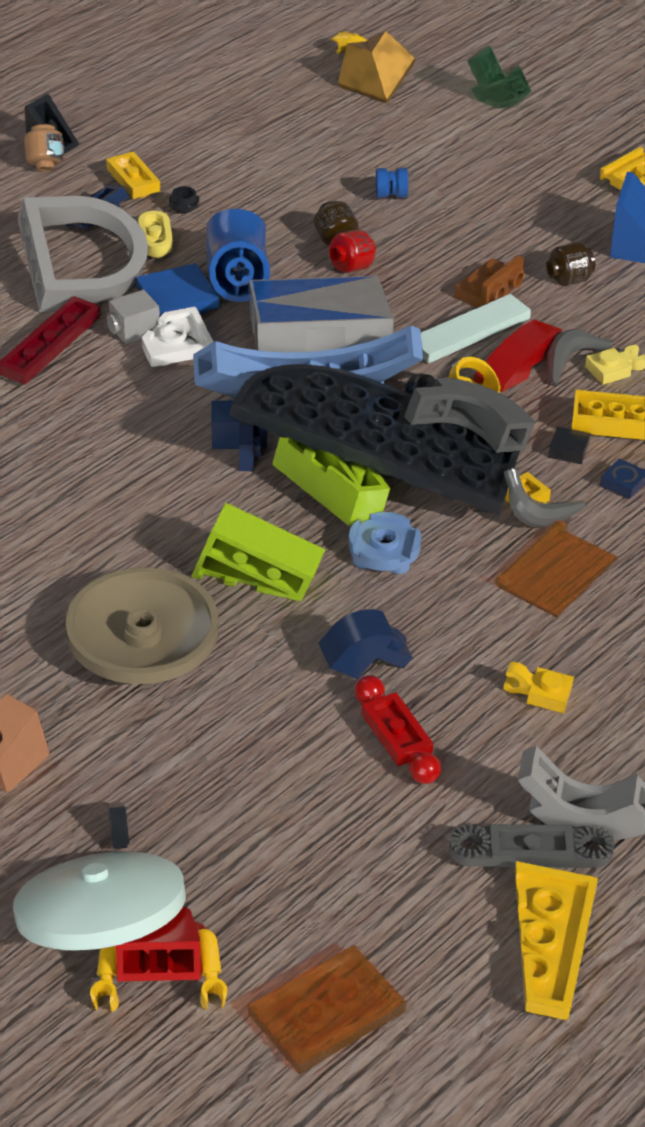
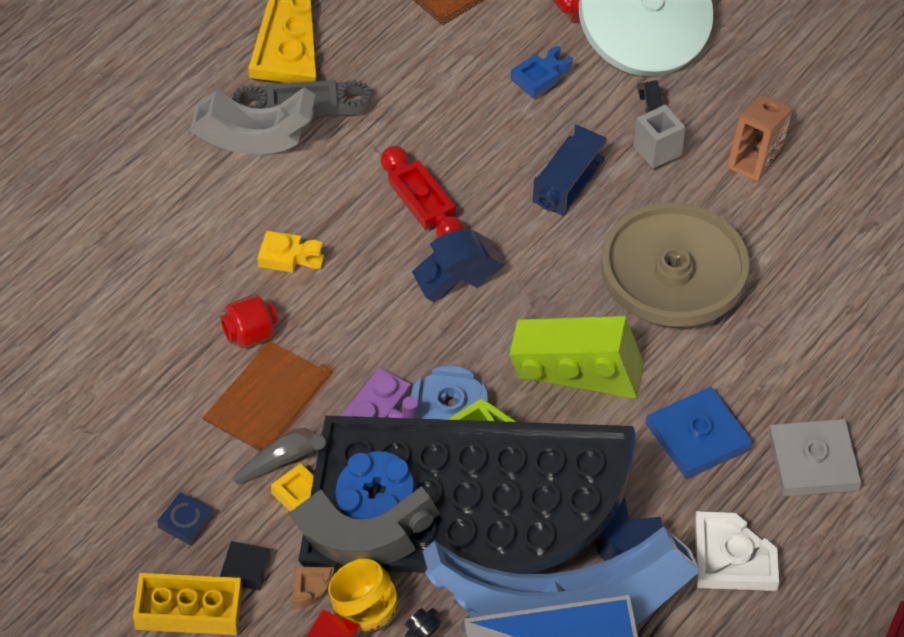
camera: 175 degrees right, 10 degrees up
(55, 486) = (814, 457): none -> light grey plate
(123, 752) = (659, 136): none -> light grey brick
(152, 419) = (732, 554): none -> white plate
(155, 510) = (698, 432): none -> blue plate
(230, 737) = (569, 171): none -> dark blue window
(242, 858) = (540, 74): none -> blue plate
(453, 550) = (383, 398): none -> medium lavender plate
(459, 437) = (371, 469): none -> blue plate
(579, 616) = (249, 321): none -> red head

